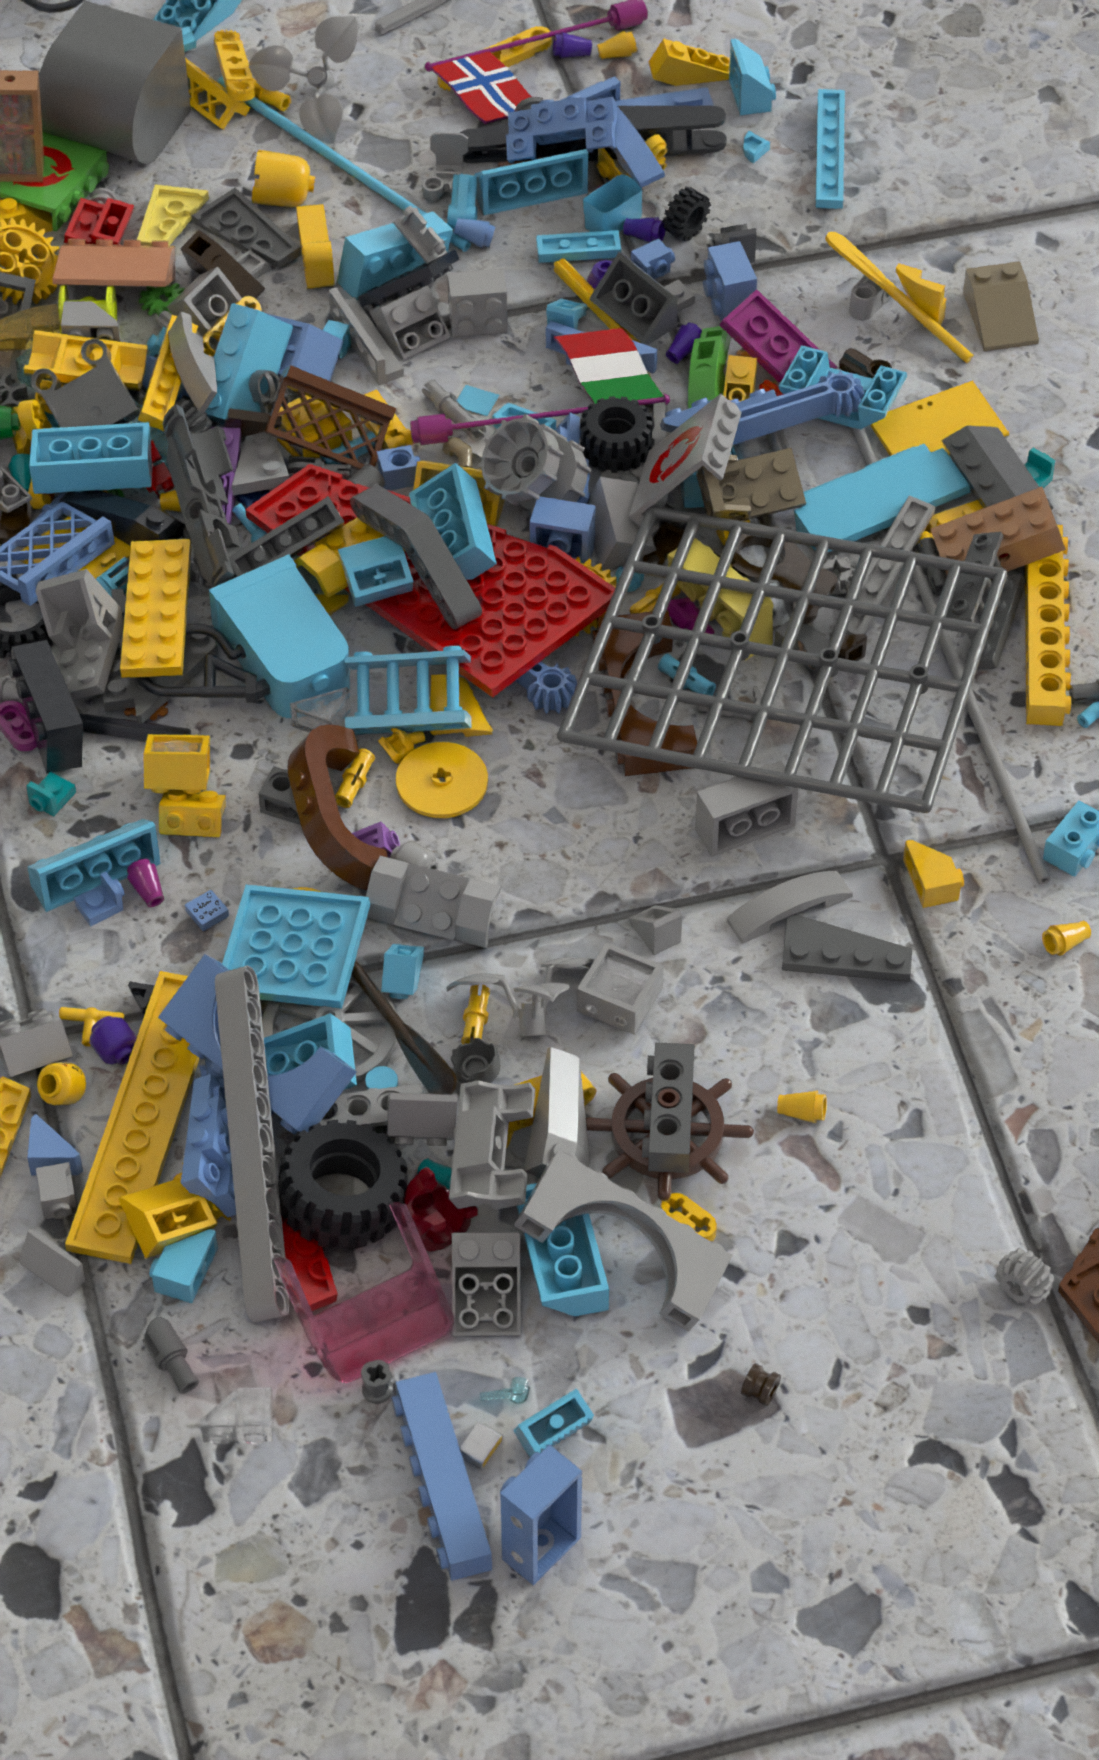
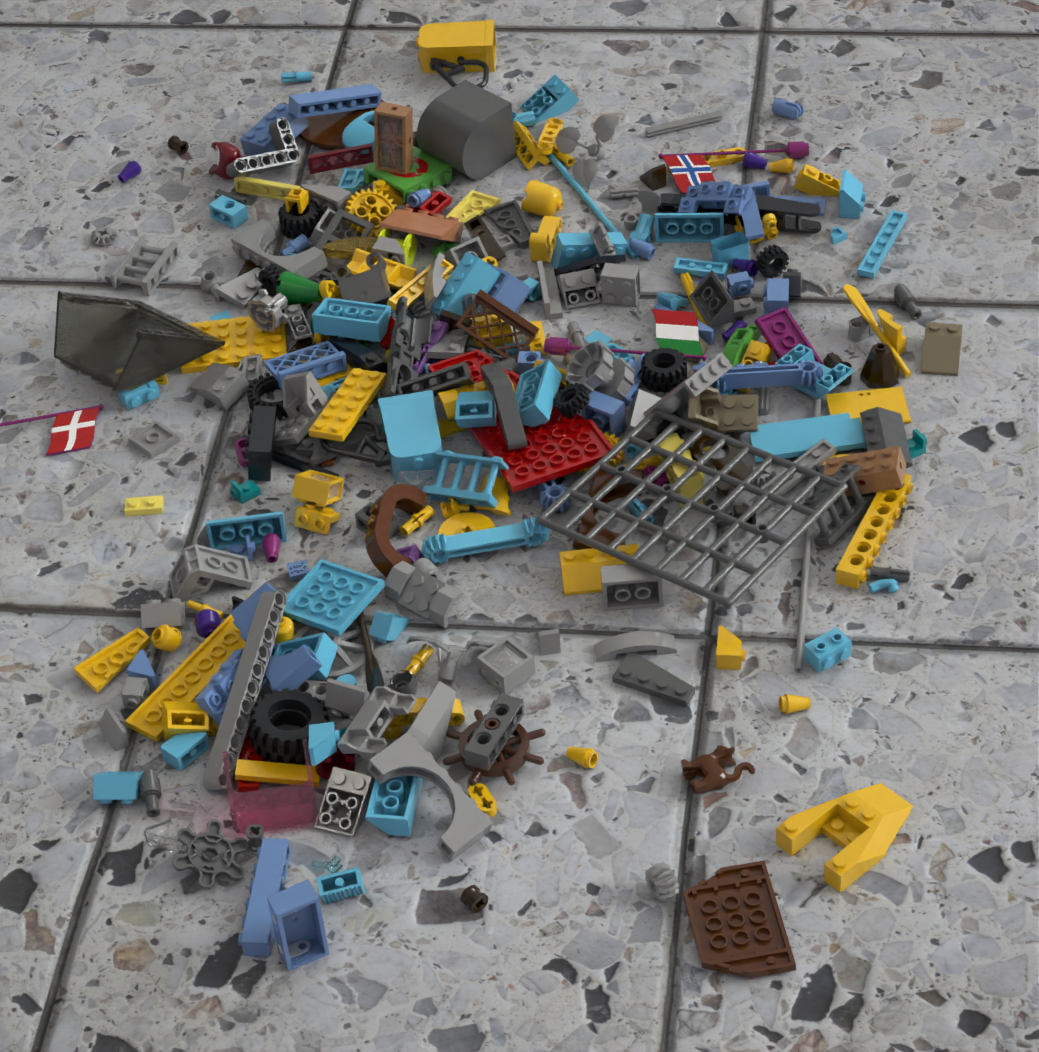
camera: 25 degrees right, 10 degrees down
(60, 949) = (211, 564): none -> light grey bracket
(82, 218) = (417, 198): none -> medium blue cone
(111, 1357) = (116, 786): none -> medium azure slope
(337, 1417) = (212, 842): none -> dark grey plate
(352, 1265) = (273, 772): none -> yellow tile
(391, 142) = (627, 192): none -> light grey piece
(425, 1197) = (322, 741): none -> medium azure slope
(427, 814) = (441, 547): none -> medium azure arm
(432, 105) = (655, 177): none -> dark brown slope
(524, 531) = (571, 400): none -> black tyre
(664, 794) = (582, 568): none -> yellow slope
(912, 237) = (906, 301): none -> dark grey arm
(929, 358) = (880, 367): none -> dark brown cone
(1004, 1079) = (711, 771): none -> reddish brown animal

